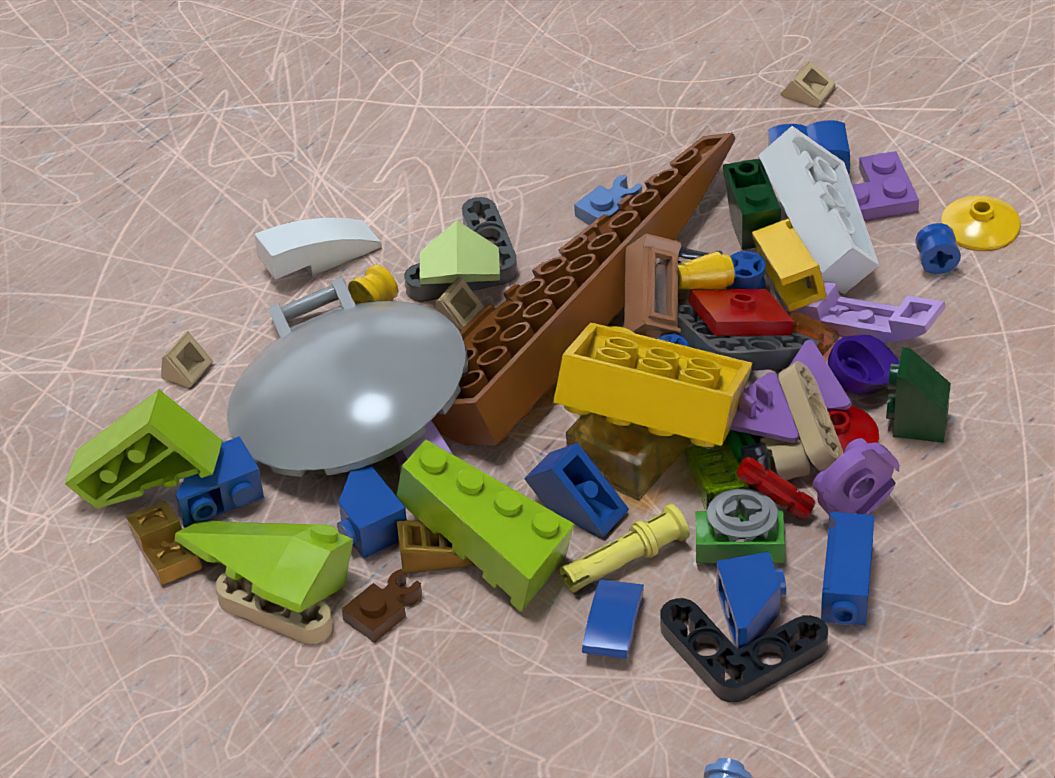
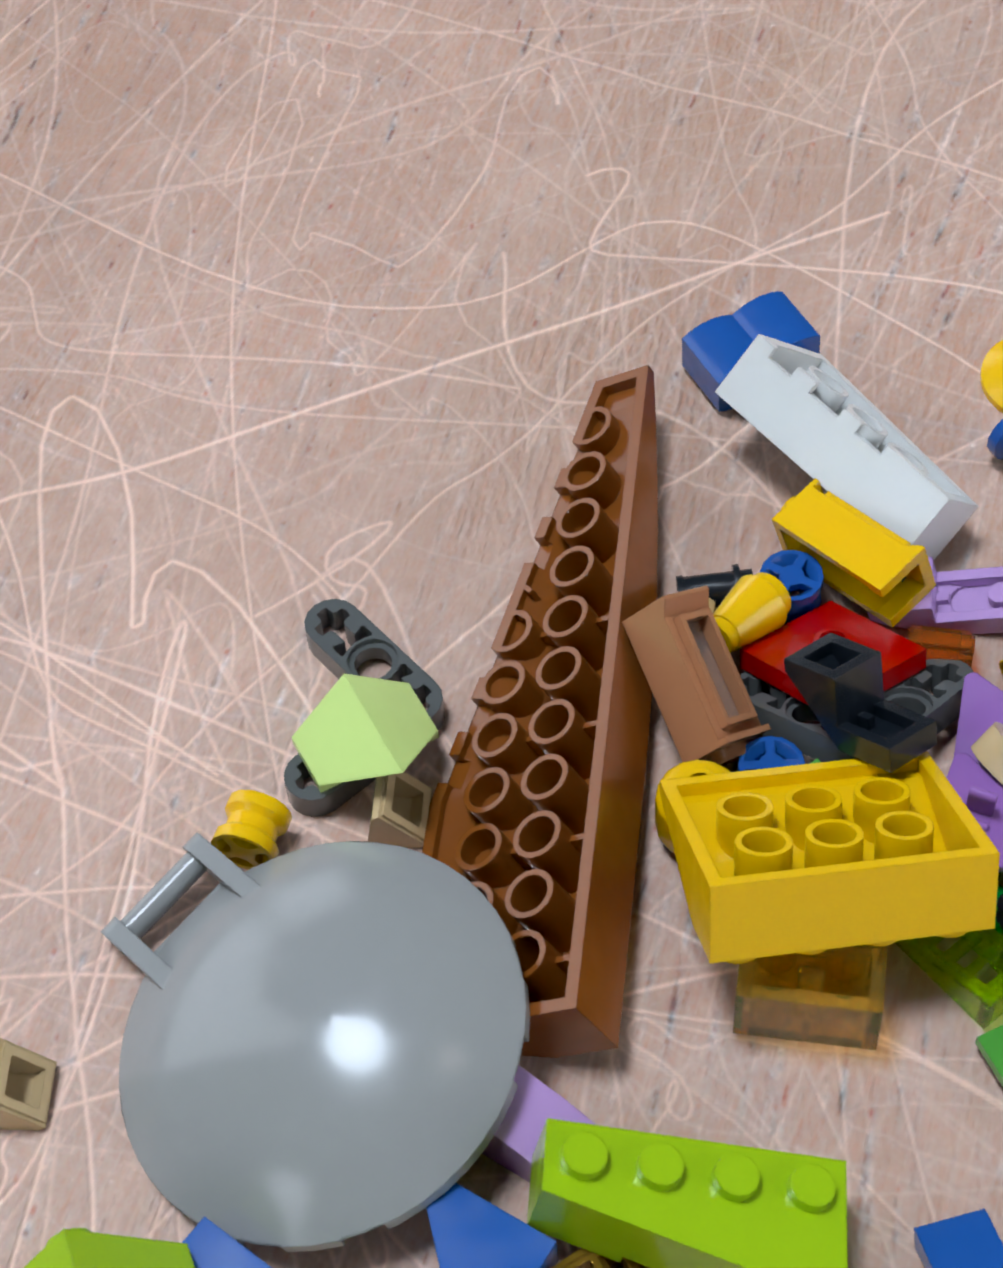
camera: 25 degrees left, 10 degrees up
(314, 245) = (111, 785): white slope -> none
(577, 490) = (782, 1078): blue slope -> none
(604, 201) = (508, 540): medium blue plate -> none
(641, 540) = (933, 1127): light yellow pin -> none
(722, 322) = (847, 696): none -> black slope
(750, 199) = (731, 466): dark green slope -> none
(809, 86) = (674, 244): tan slope -> none
(886, 187) = (883, 365): medium lavender plate -> none

